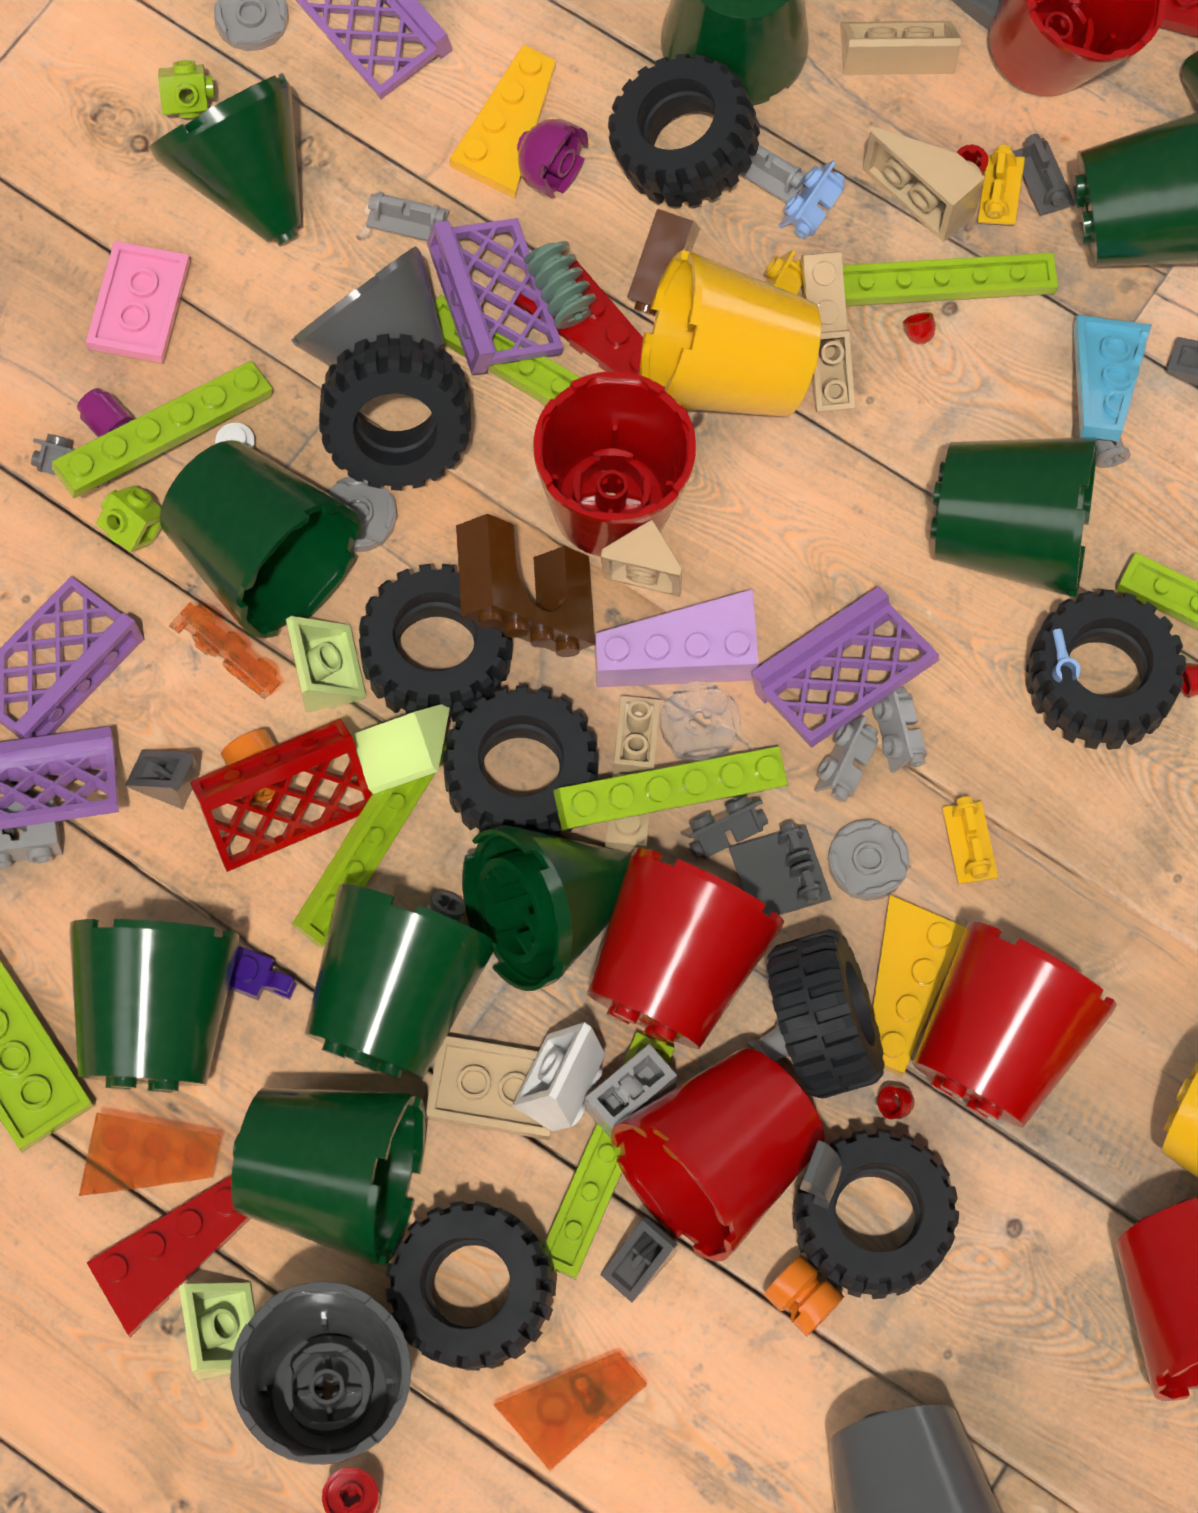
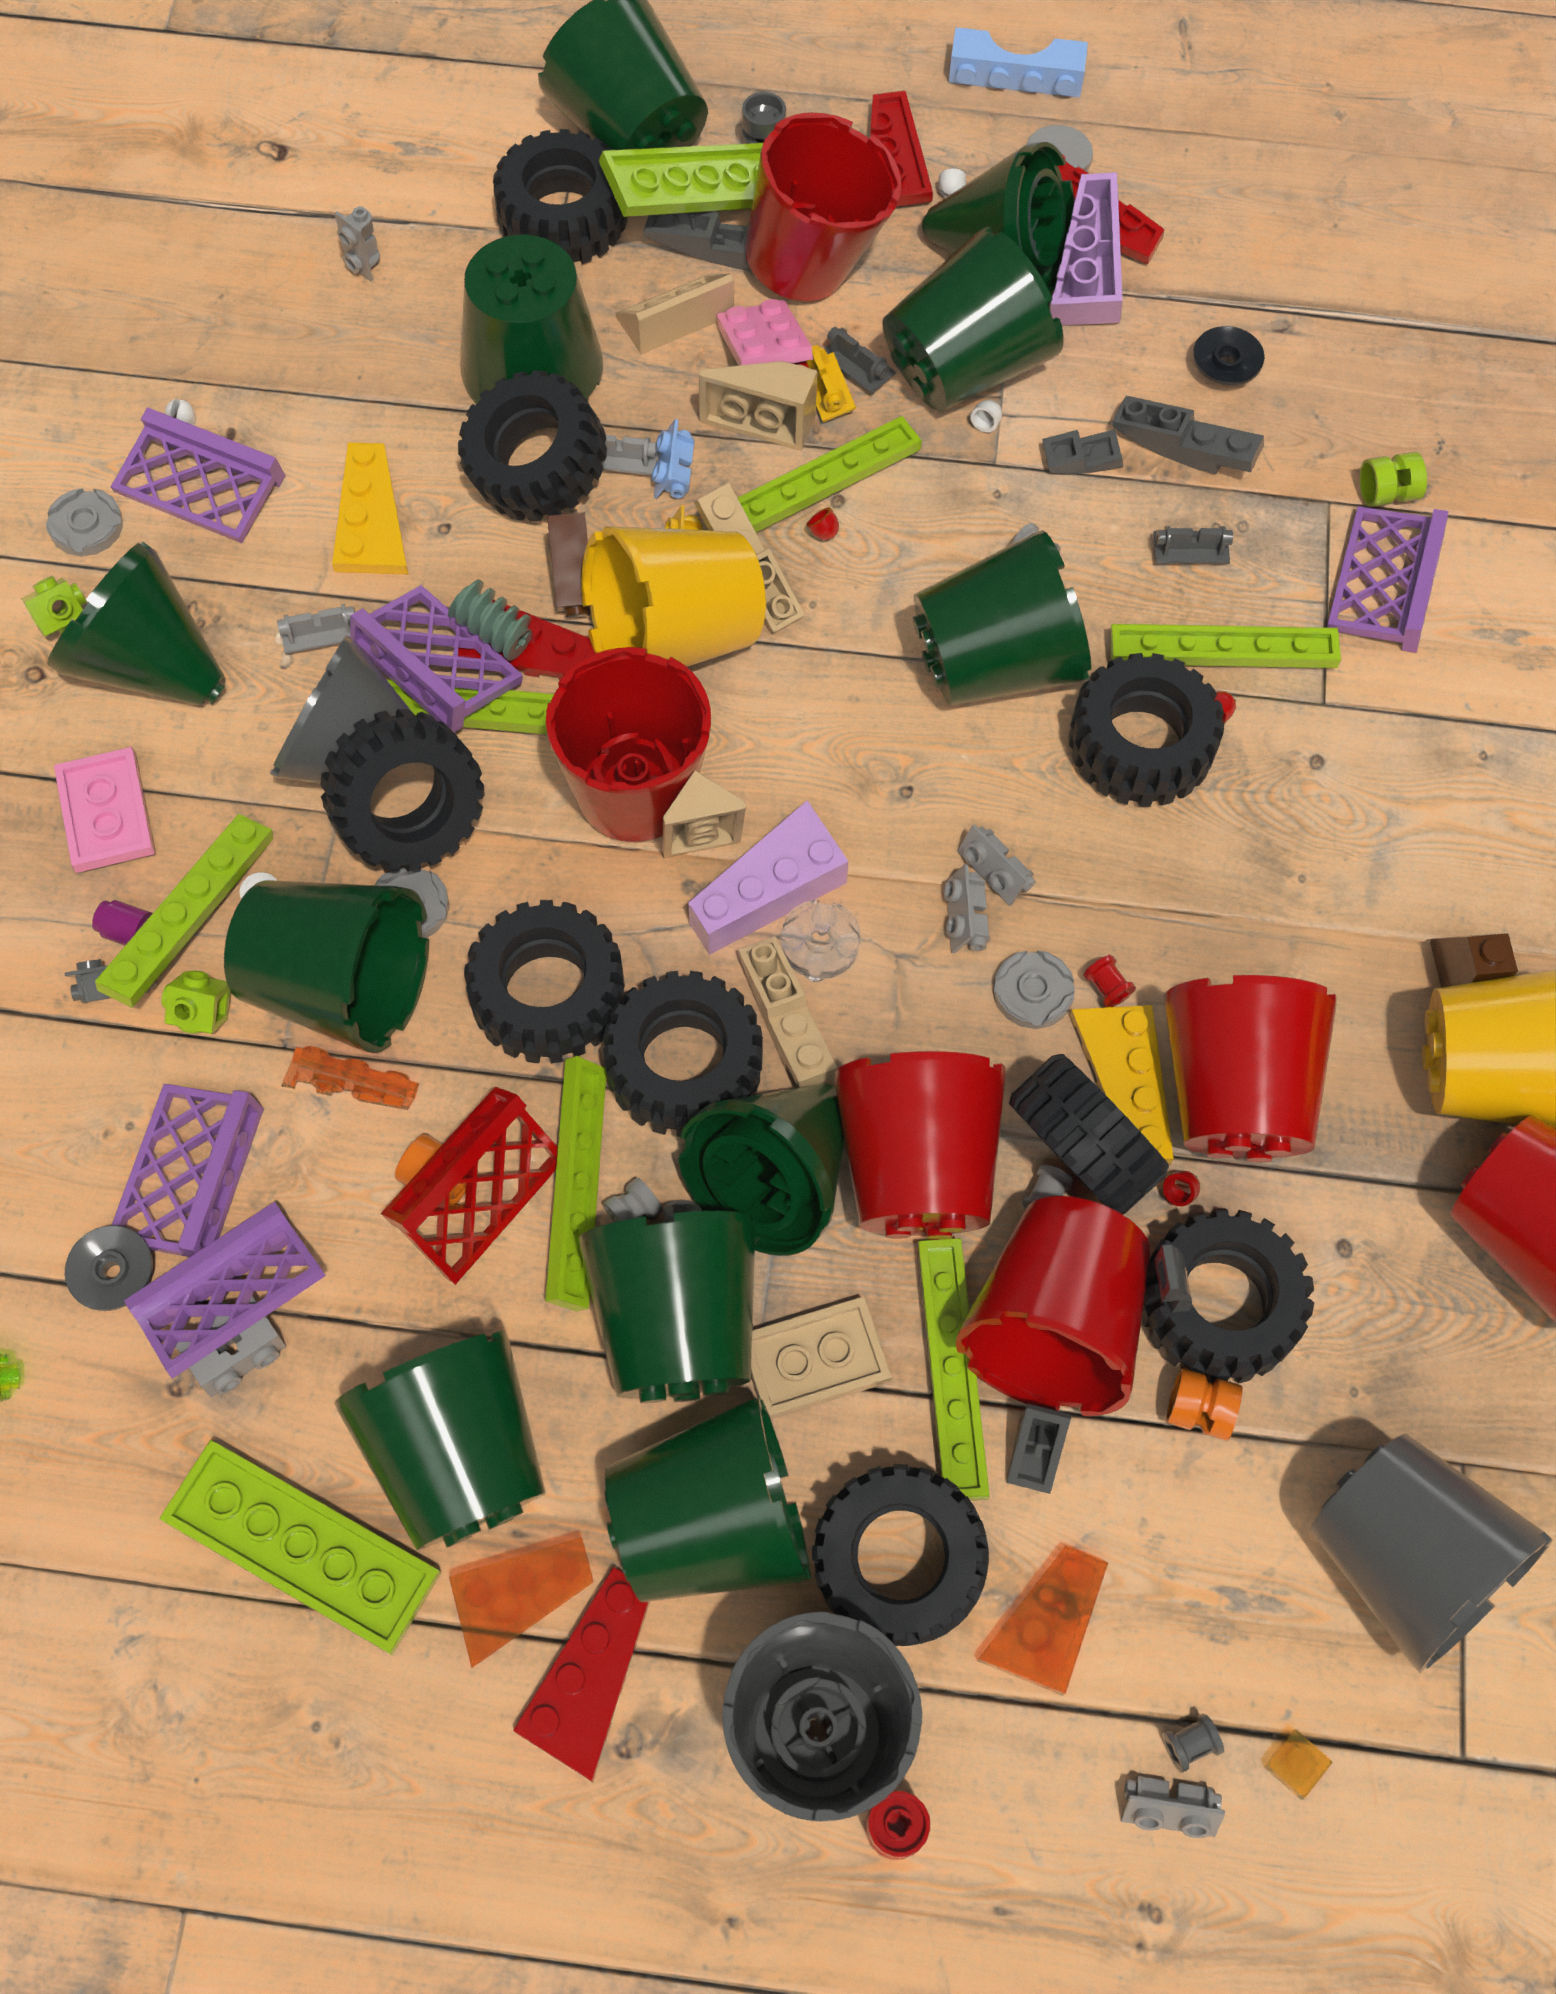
camera: 25 degrees left, 5 degrees down
(164, 776) = (349, 1223): dark grey slope -> none
(213, 1323) = (678, 1725): yellowish green slope -> none
(254, 974) = (535, 1366): dark purple plate -> none
(325, 663) = (448, 1049): yellowish green slope -> none
(402, 748) = (568, 1087): yellowish green slope -> none
(407, 880) = (637, 1203): none -> light grey wheel
(497, 600) = (626, 904): reddish brown arch -> none
(551, 155) = (422, 519): magenta cylinder -> none
(561, 1077) = (877, 1314): white slope -> none
(630, 1089) = (949, 1295): light grey brick -> none
(670, 788) = (828, 1007): lime plate -> none
(710, 830) = (901, 1006): dark grey hinge -> none
(781, 870) = (965, 1026): dark grey hinge -> none
(821, 647) = (892, 827): medium lavender fence -> none
(938, 886) = (1109, 981): none -> red bush
(964, 112) = (764, 334): none -> bright pink plate
(969, 841) = (1112, 930): yellow hinge -> none
(1063, 658) = (1114, 732): light blue hand -> none
(1106, 372) = (1002, 487): medium azure wing -> none
(1137, 288) = (986, 415): none -> white hinge

